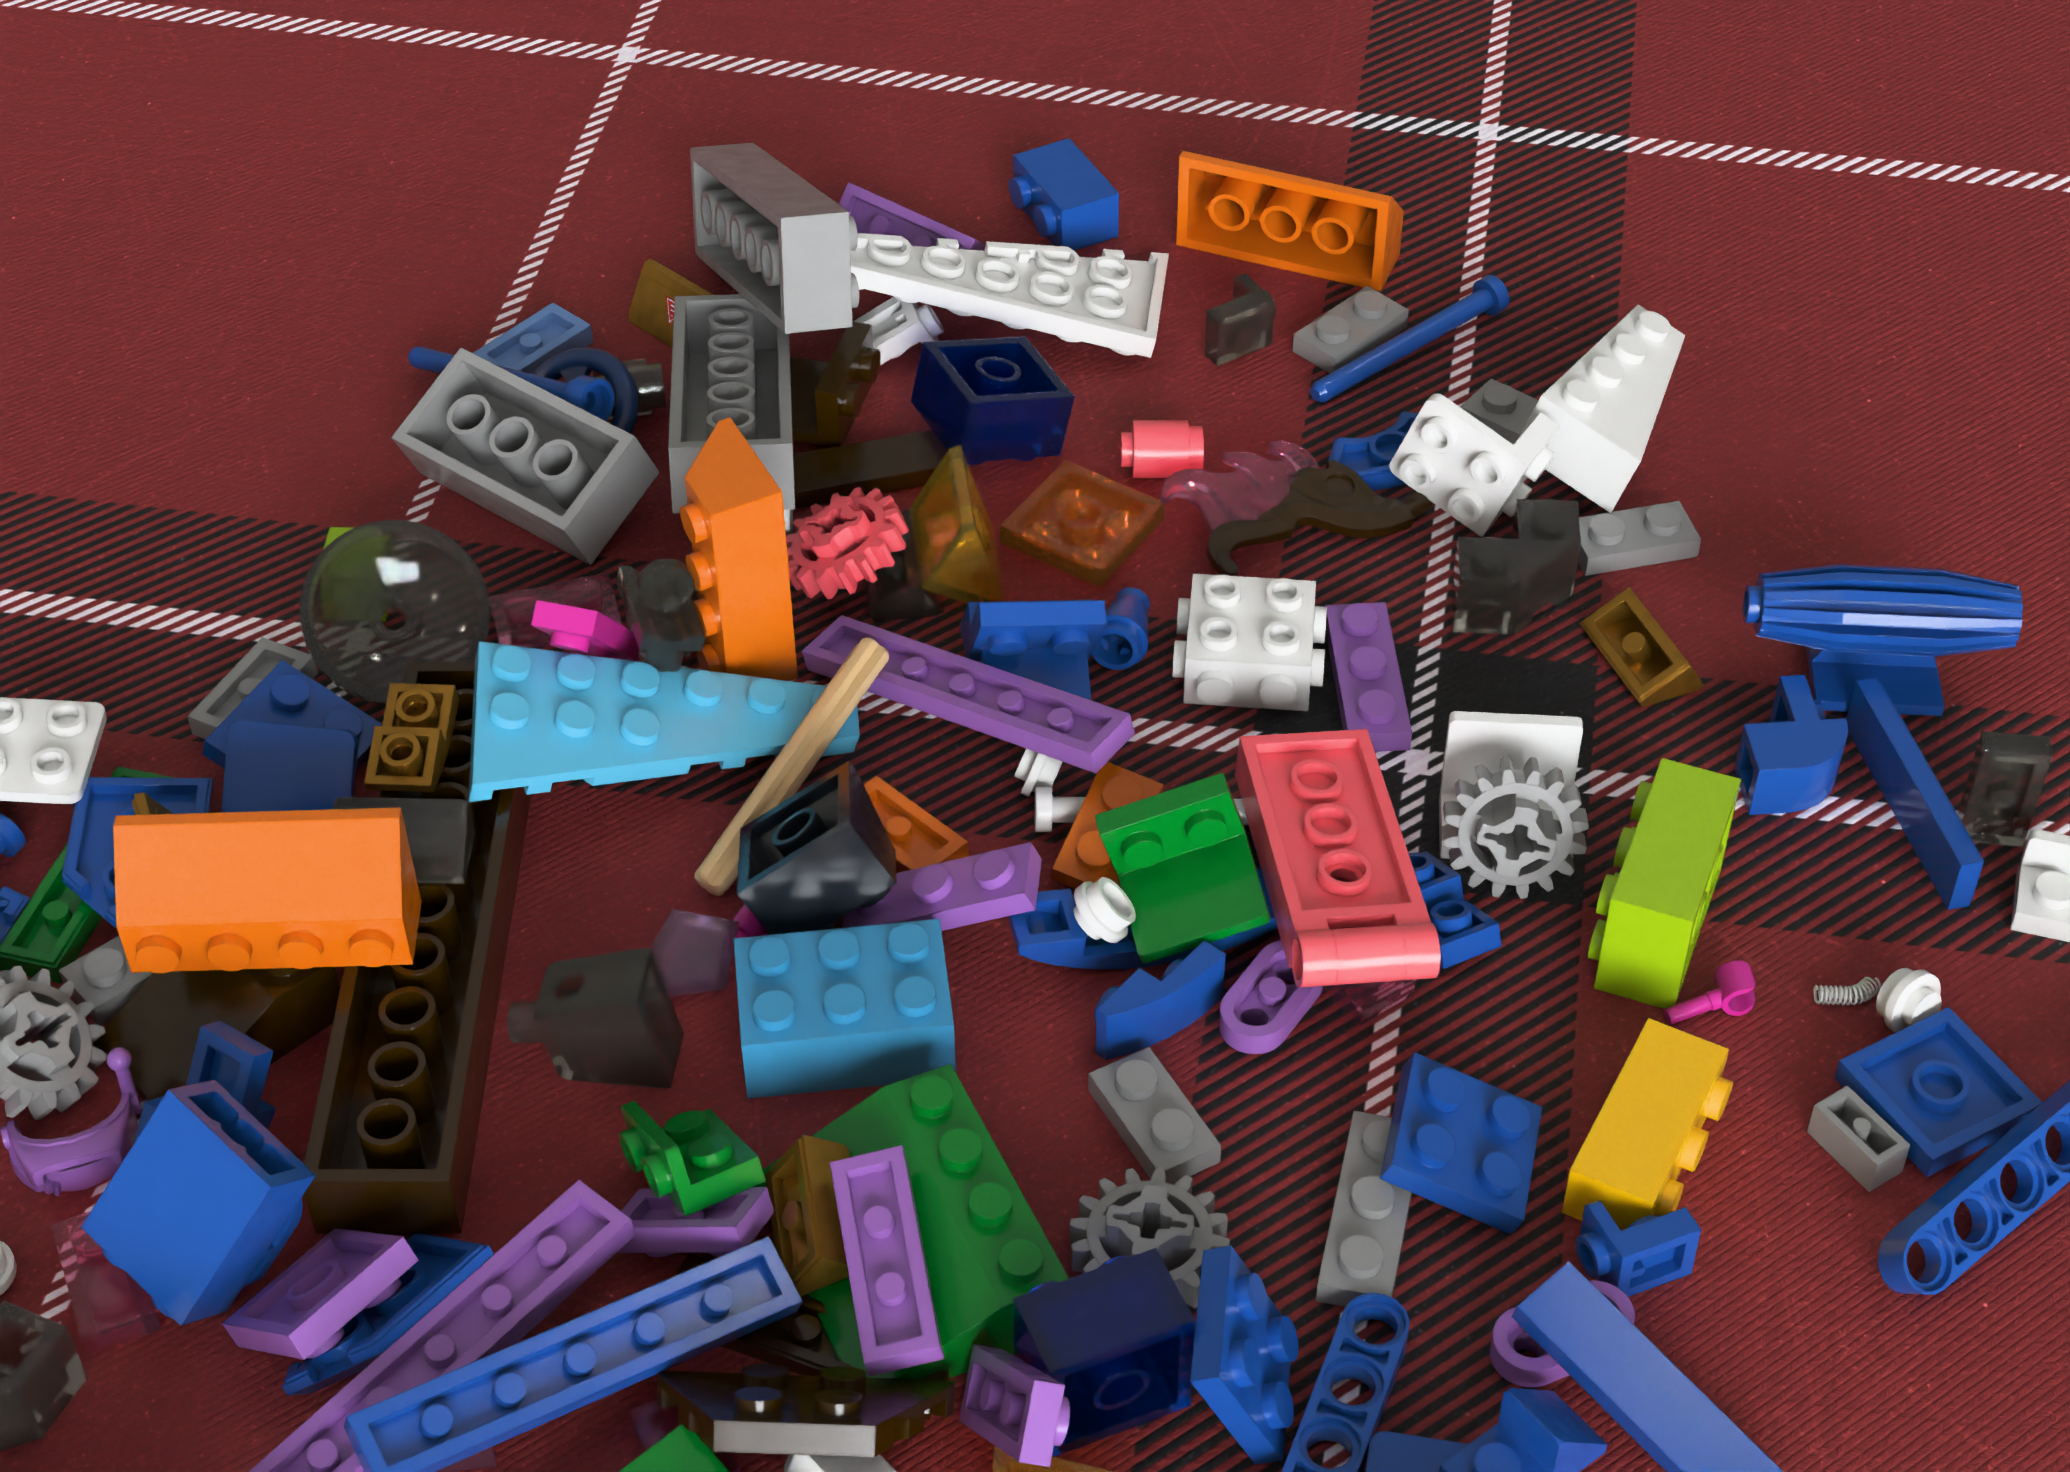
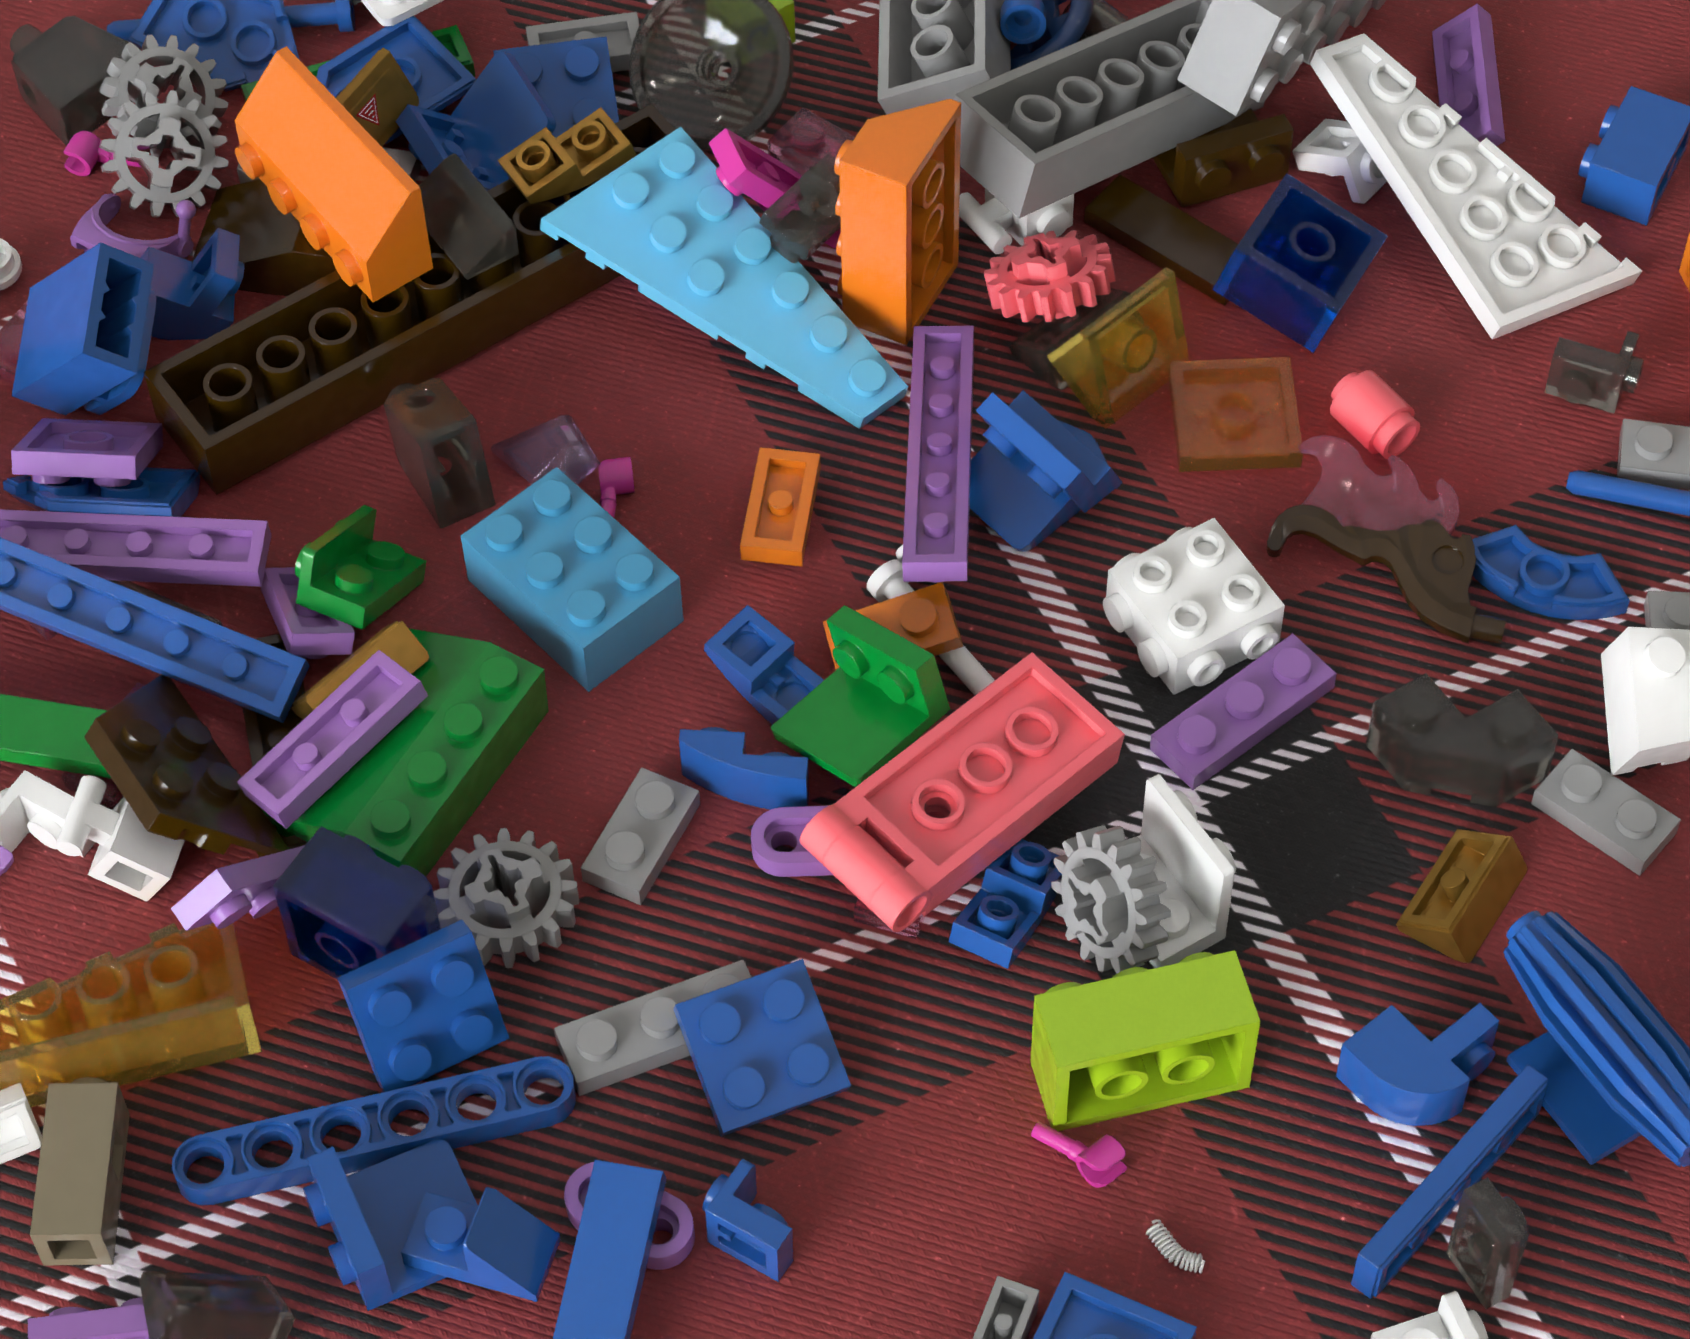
camera: 55 degrees right, 10 degrees up
(796, 758) = (781, 395): tan axle -> none
(816, 856) = (676, 465): black slope -> none
(960, 890) = (723, 568): medium lavender plate -> none
(1103, 910) = (784, 675): white plate -> none
(1126, 632) = (1132, 513): blue cone -> none
(1469, 465) = (1546, 670): white bracket -> none
(1650, 1126) = (879, 1169): yellow brick -> none
(1908, 998) = (1189, 1294): white plate -> none

